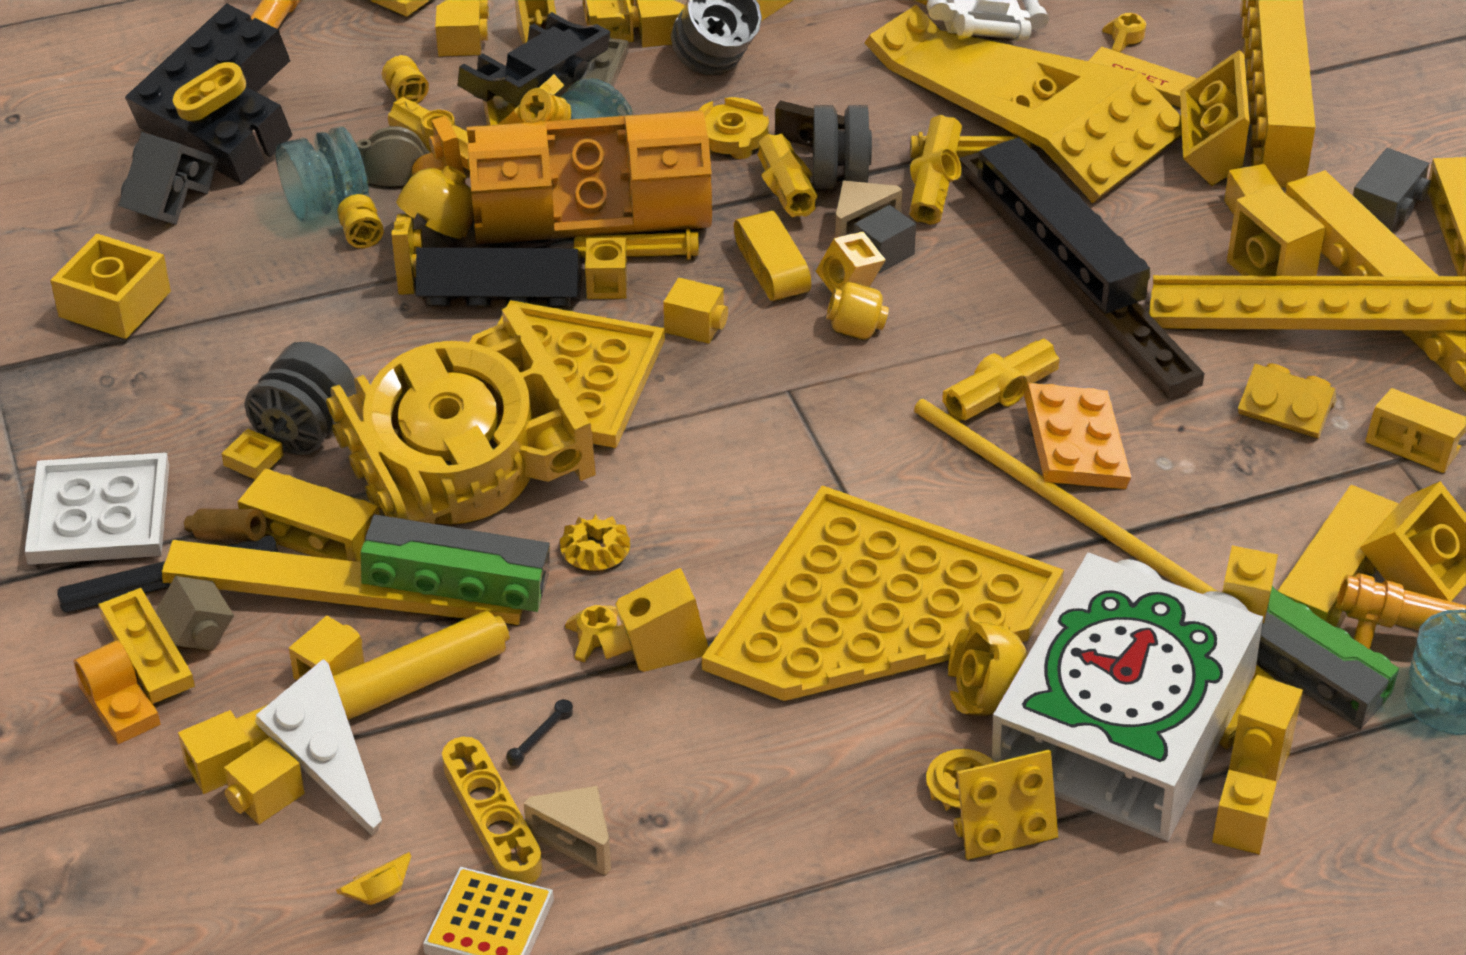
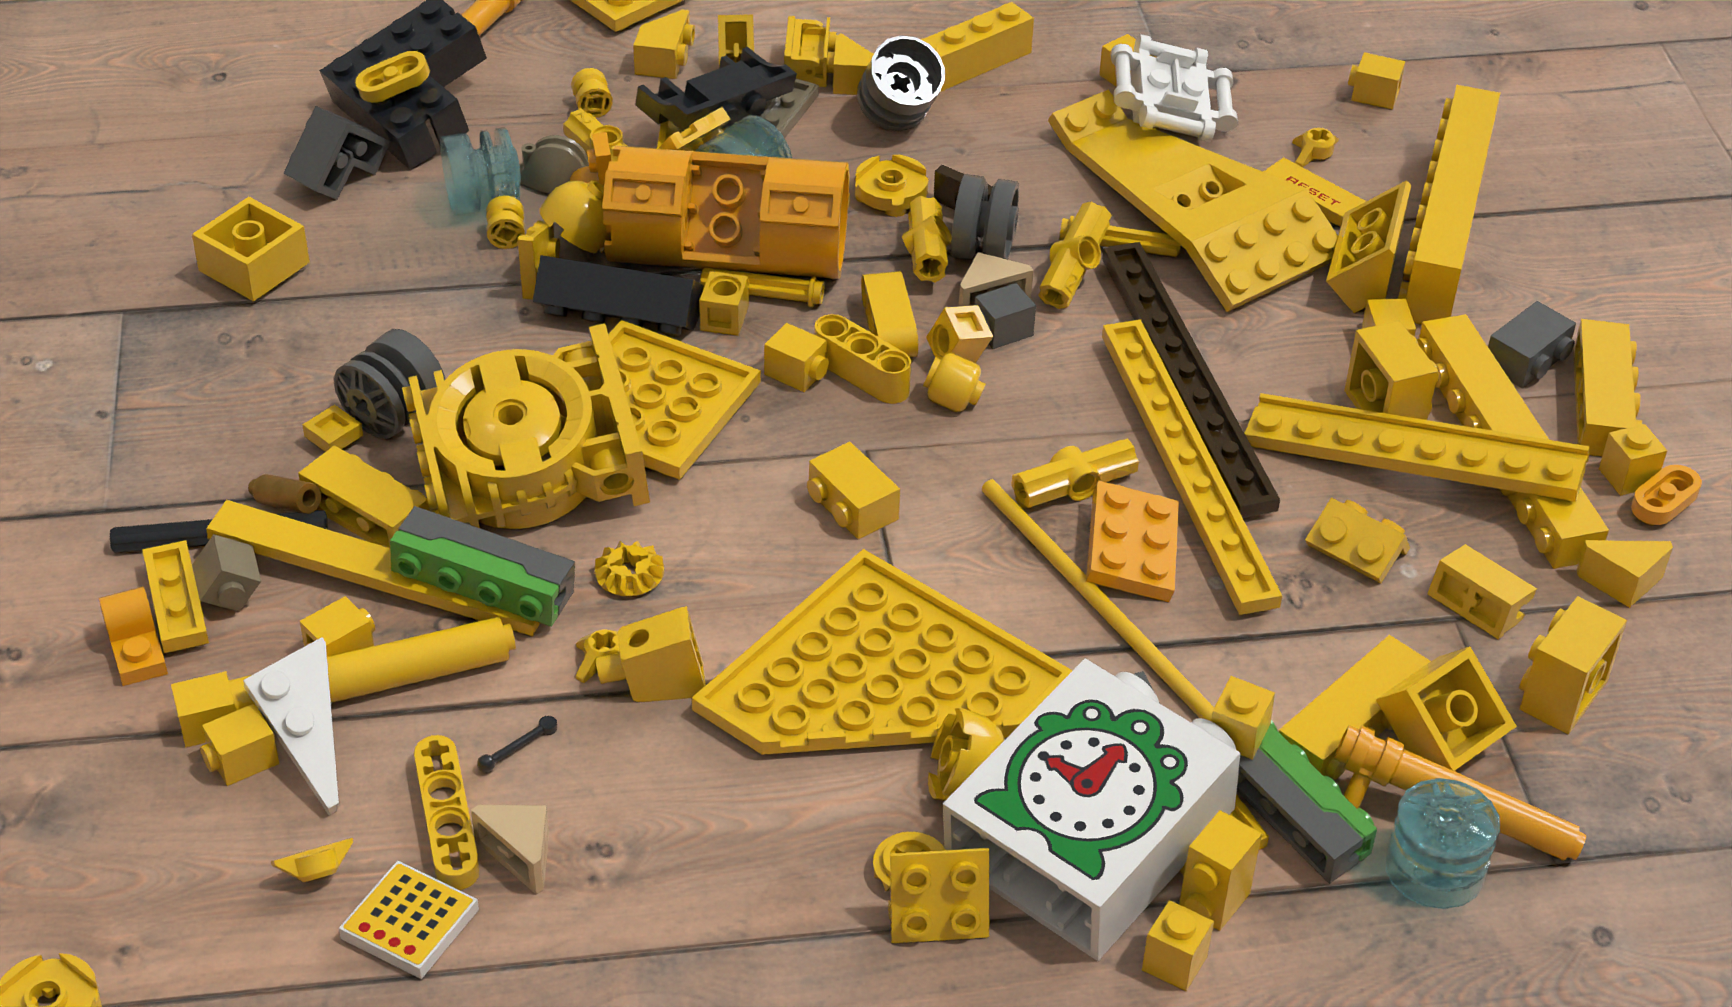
camera: 10 degrees right, 0 degrees up
(97, 508) = (173, 458): white plate -> none
(542, 106) = (699, 137): yellow bush -> none
(764, 301) = (865, 359): none -> yellow beam
(793, 430) = (853, 490): none -> yellow brick
(1063, 225) = (1182, 330): black brick -> none
(1110, 357) = (1192, 469): none -> yellow plate

